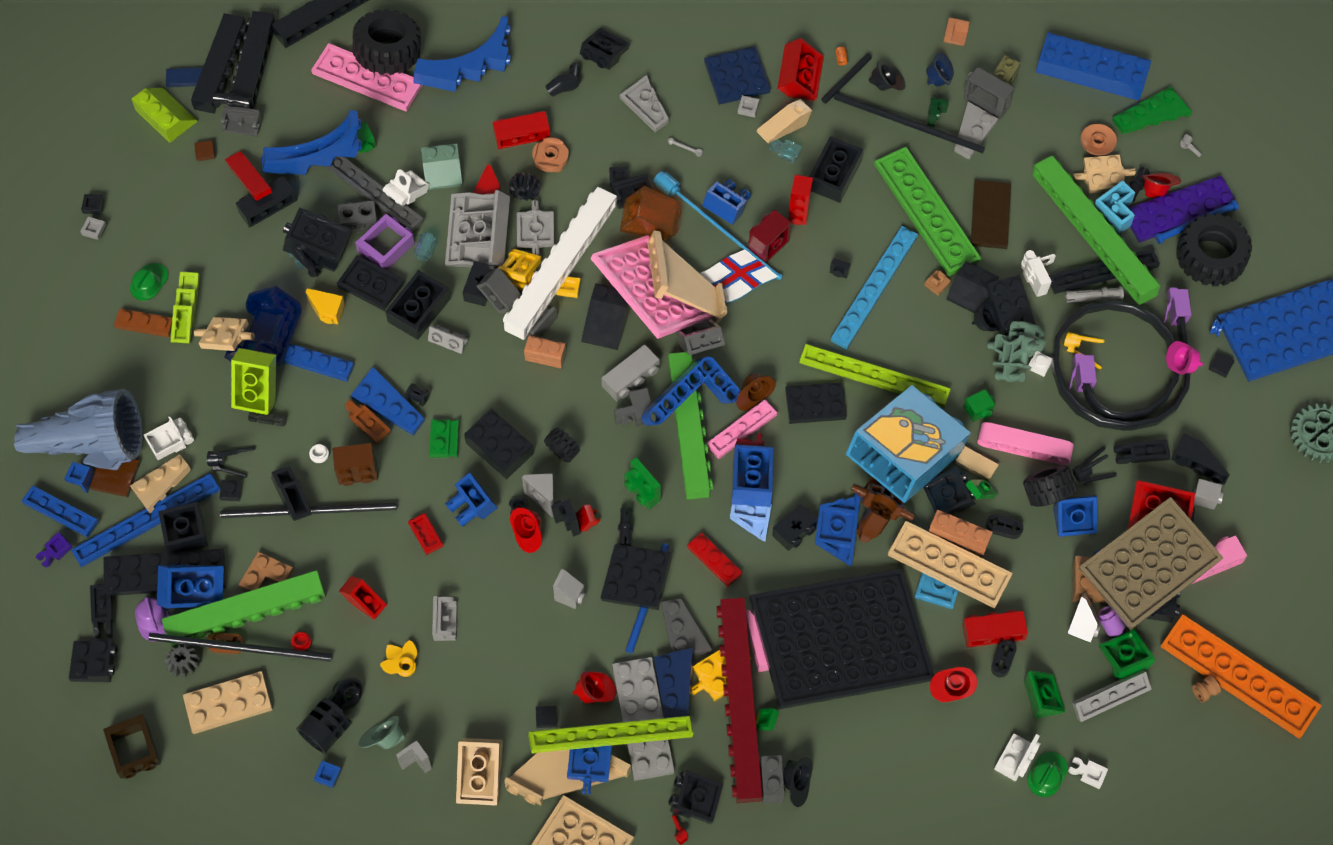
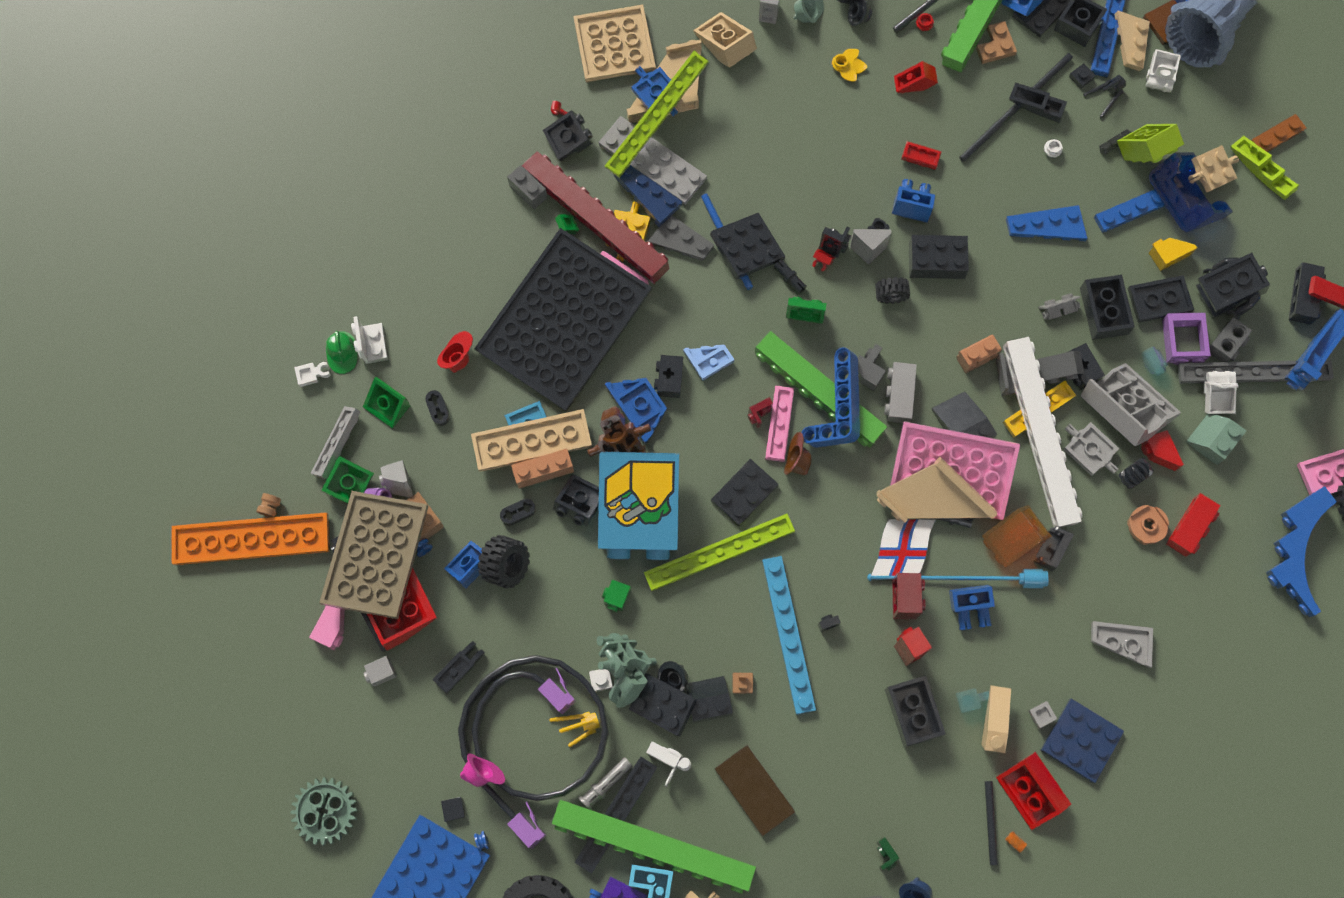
camera: 140 degrees right, 10 degrees up
(148, 281) = (1313, 167): green piece -> none
(355, 464) = (1018, 152): reddish brown brick -> none
(366, 137) = (1301, 408): green brick -> none
(367, 422) = (1046, 196): dark orange hinge -> none
(417, 394) = (1034, 245): black bush -> none
(444, 439) = (981, 233): green plate -> none
(444, 619) = (848, 111): light grey hinge -> none
(523, 268) = (1064, 403): yellow plate -> none
(526, 528) = (856, 216): red piece -> none
(546, 717) = (717, 108): black tile -> none
(565, 82) = (1205, 601): black arm -> none
(568, 590) = (783, 193): light grey slope -> none
(595, 688) = (700, 147): red piece -> none
(603, 48) = (1211, 662): black plate -> none
(618, 174) = (1077, 552): black plate -> none
(698, 152) = (1040, 636): light grey hinge -> none
(705, 337) = (865, 452): dark grey window -> none
(714, 559) = (706, 307): red plate -> none
(752, 475) = (734, 382): blue brick -> none
(797, 780) = (508, 199): black piece -> none
(887, 77) = (955, 851): black piece -> none
(910, 123) = (897, 819): black piece -> none
(926, 211) = (808, 744): bright green plate -> none
(974, 128) = (839, 867): light grey wing -> none
(976, 464) = (579, 546): tan tile -> none
(981, 489) = (556, 520): green plate -> none
(994, 628) = (460, 422): red brick -> none
(1025, 443) = (555, 594): bright pink beam -> none
(1083, 471) = (490, 608): black plant -> none
(1196, 456) = (414, 698): black slope -> none

